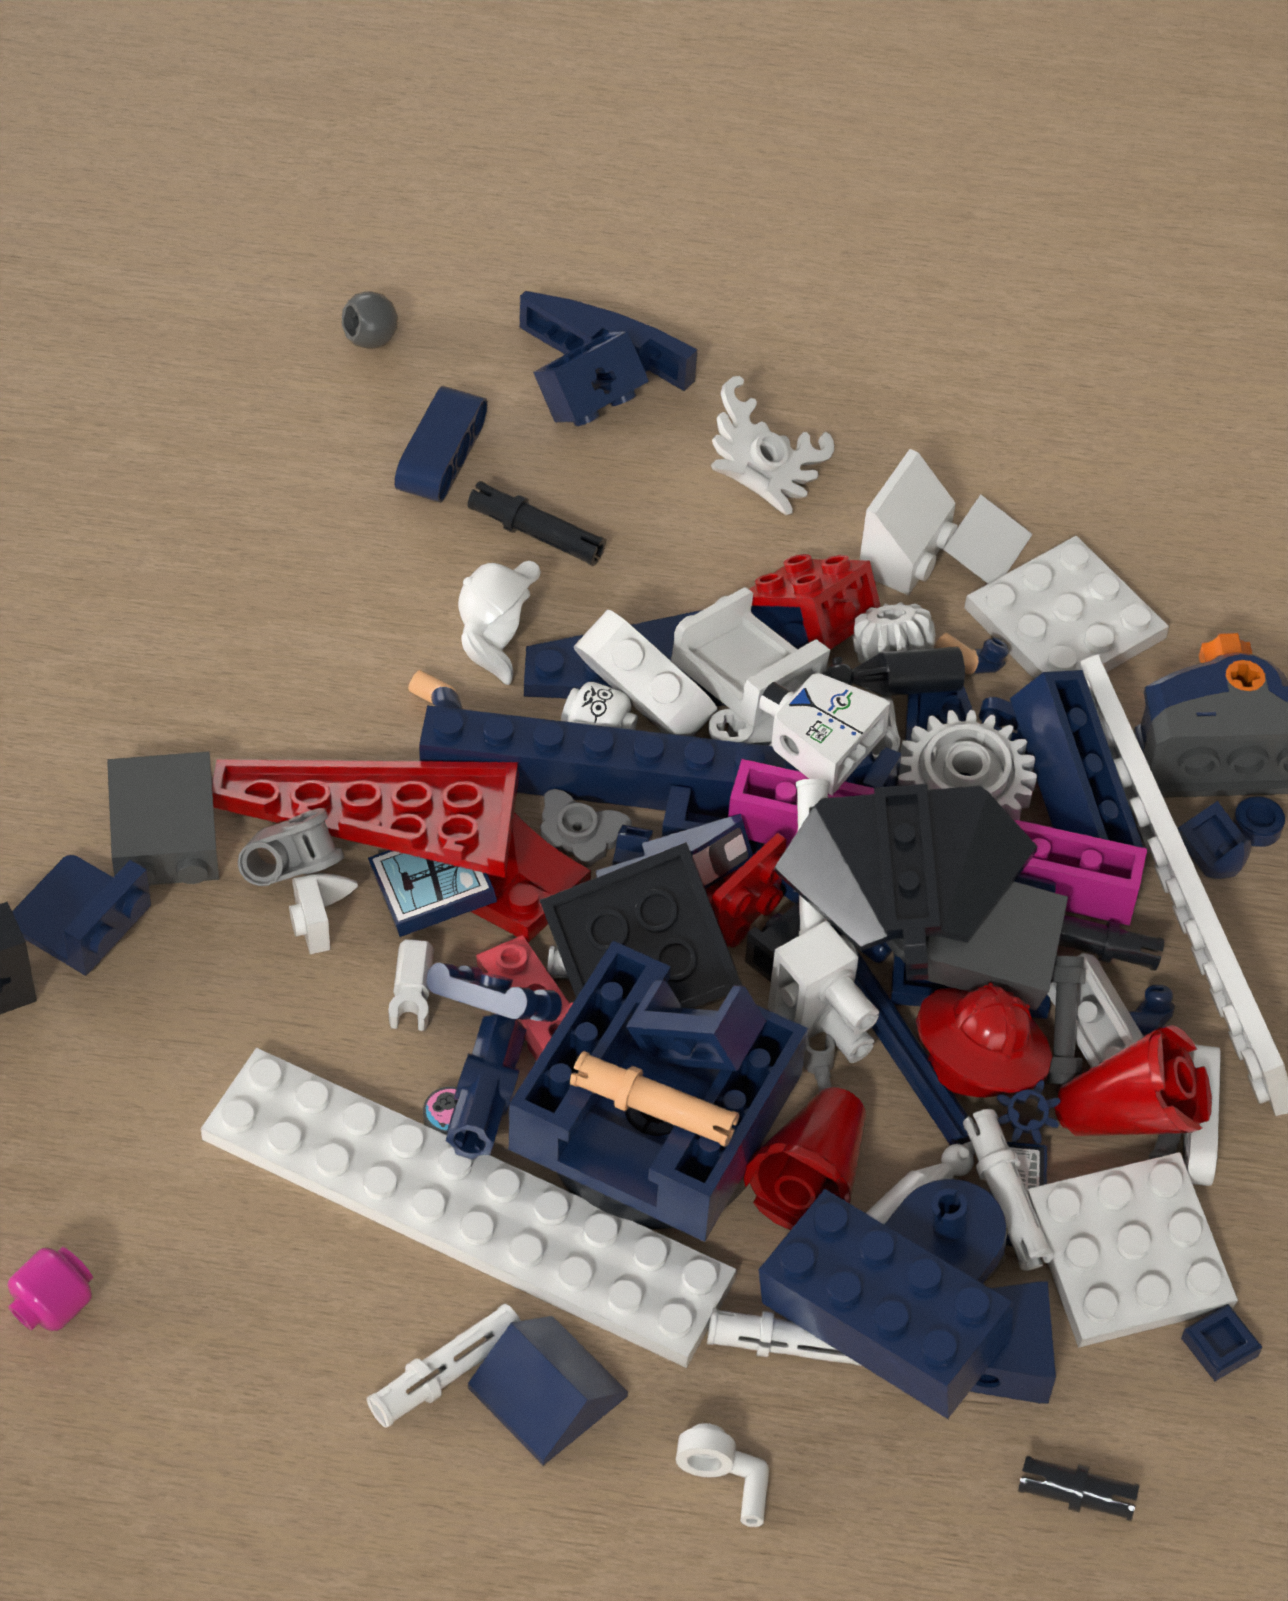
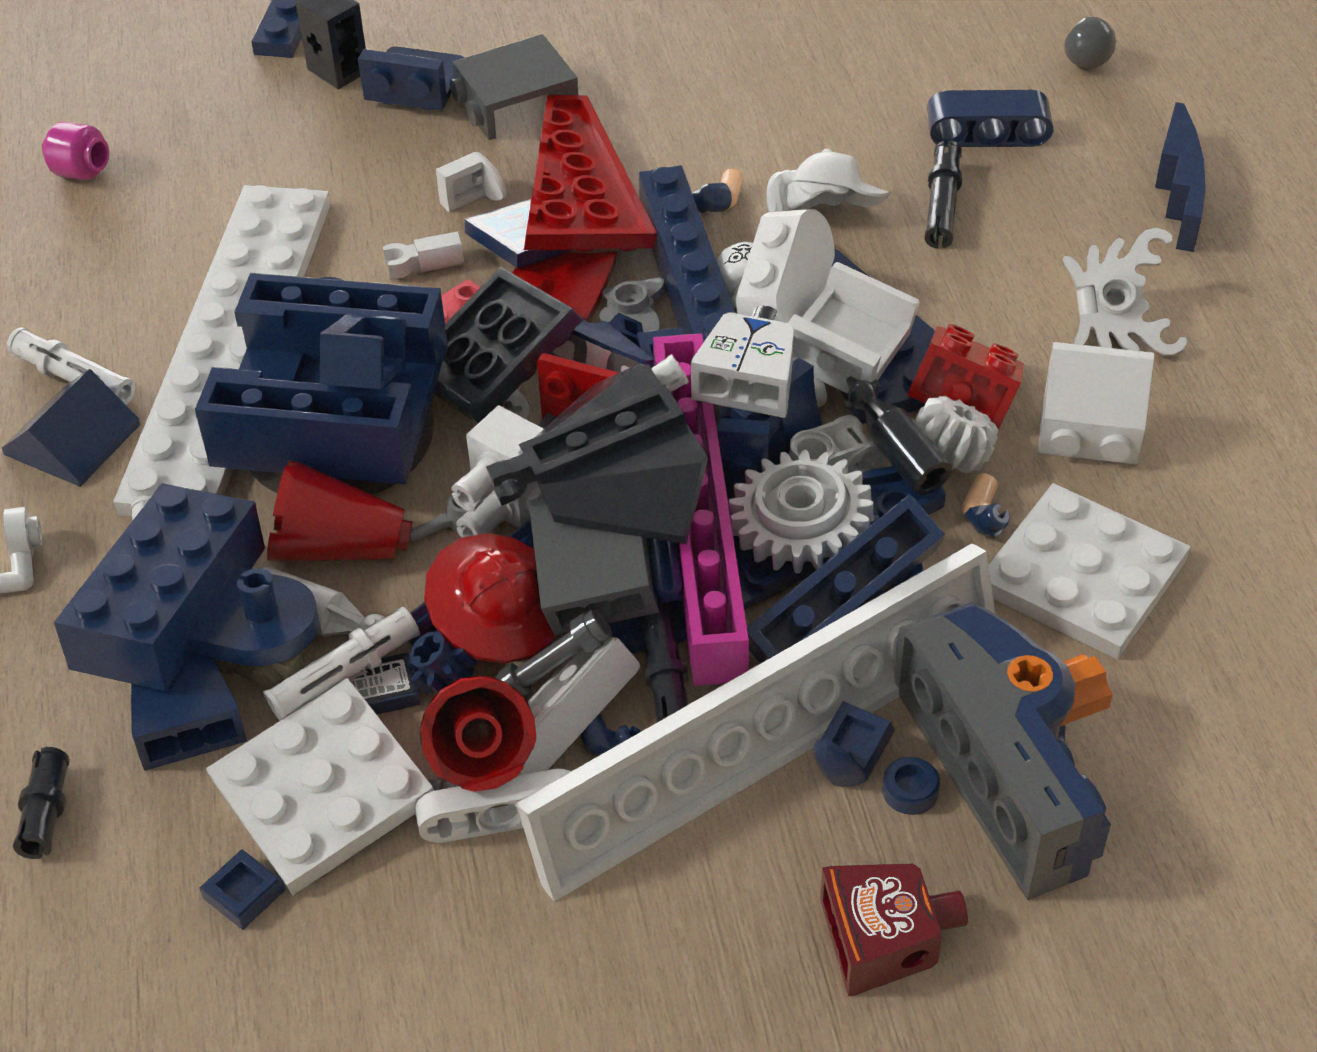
camera: 75 degrees right, 5 degrees down
(297, 844) = (506, 143): light grey piece -> none
(493, 993) = (419, 271): plate -> none
(591, 378) = (1102, 154): dark blue brick -> none
(633, 1090) = (276, 328): light nougat pin -> none
(987, 541) = (1139, 484): white sticker -> none

